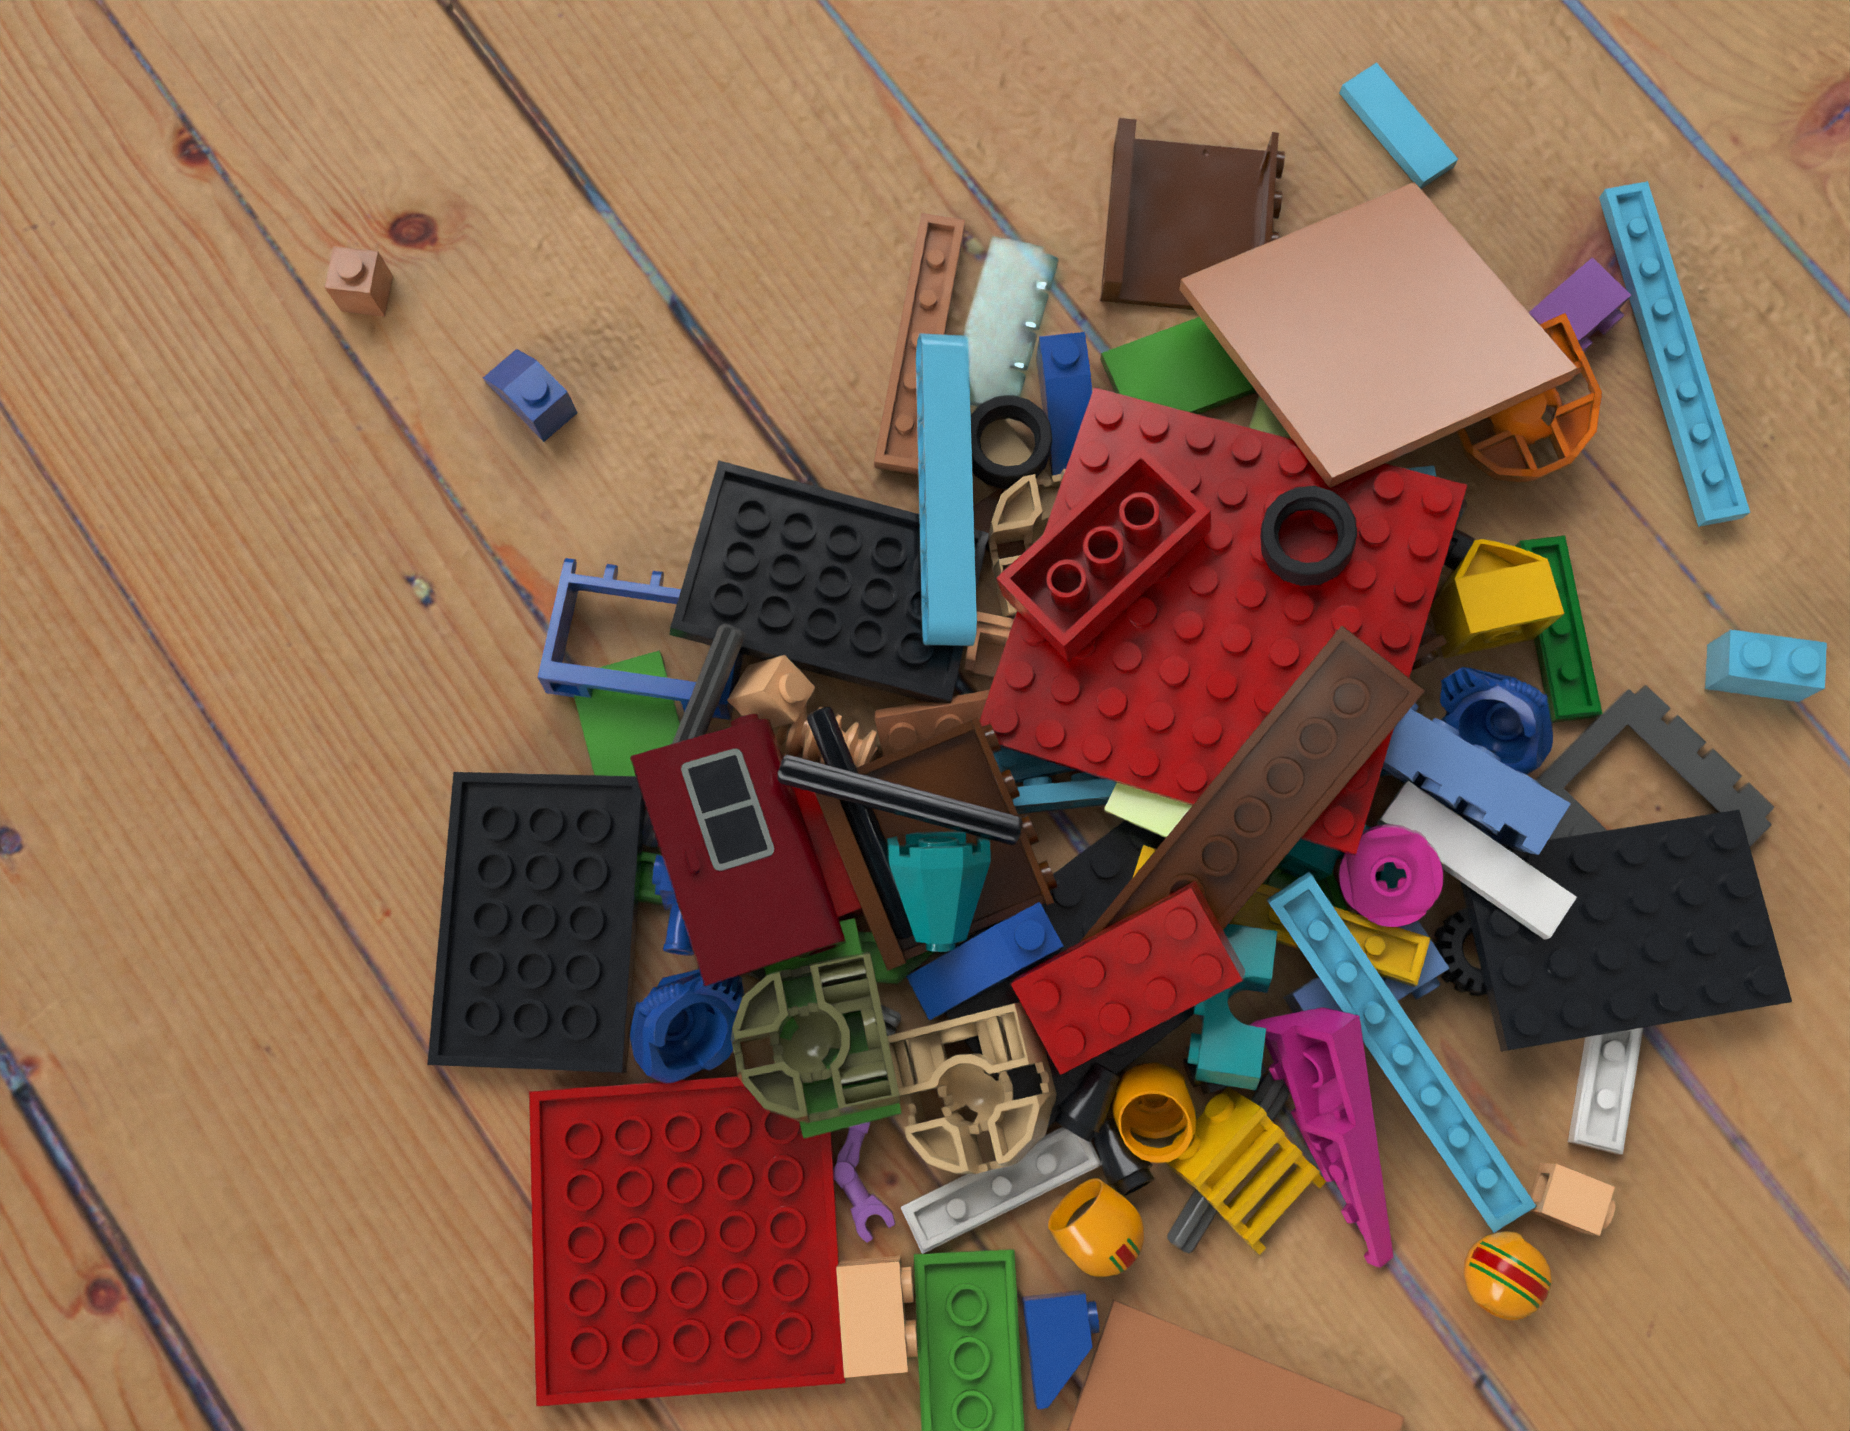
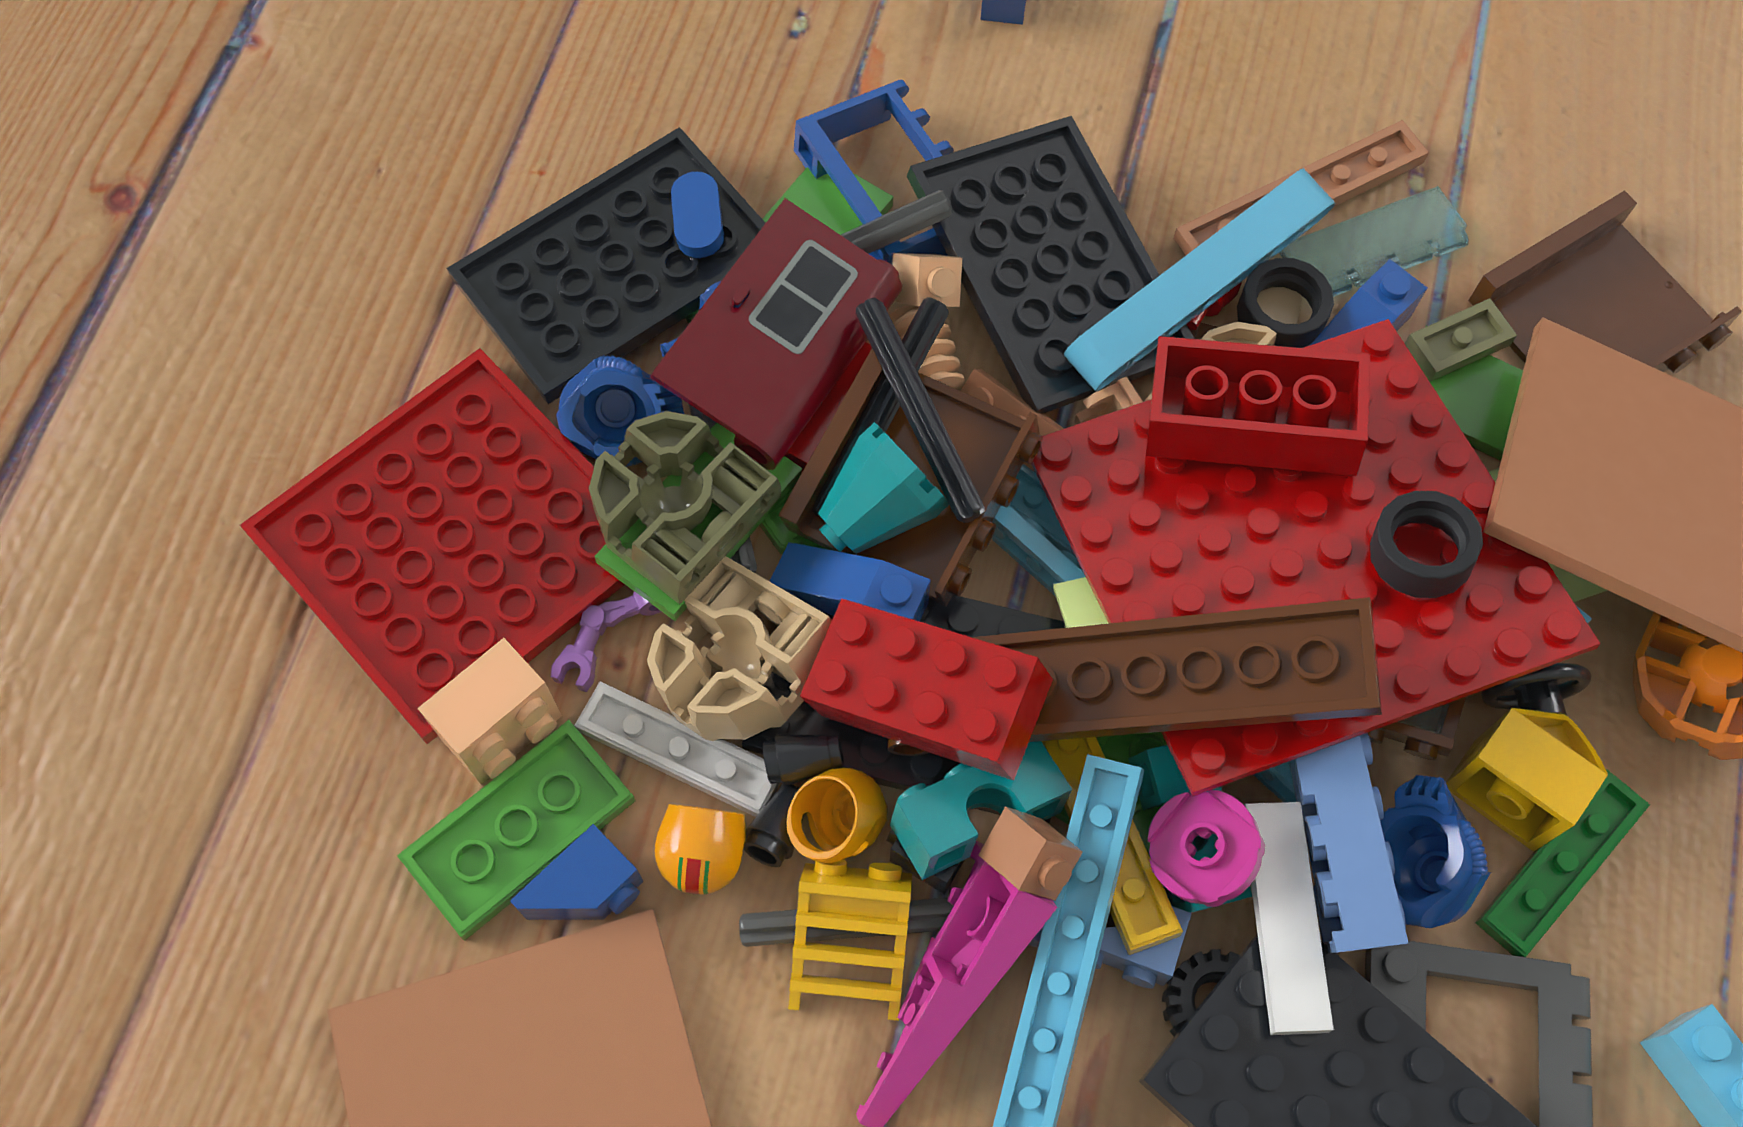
camera: 50 degrees right, 10 degrees down
(559, 825) = (697, 214): none -> blue tile
(1139, 343) = (1460, 339): none -> olive plate
(1307, 1002) = (1030, 853): none -> nougat brick

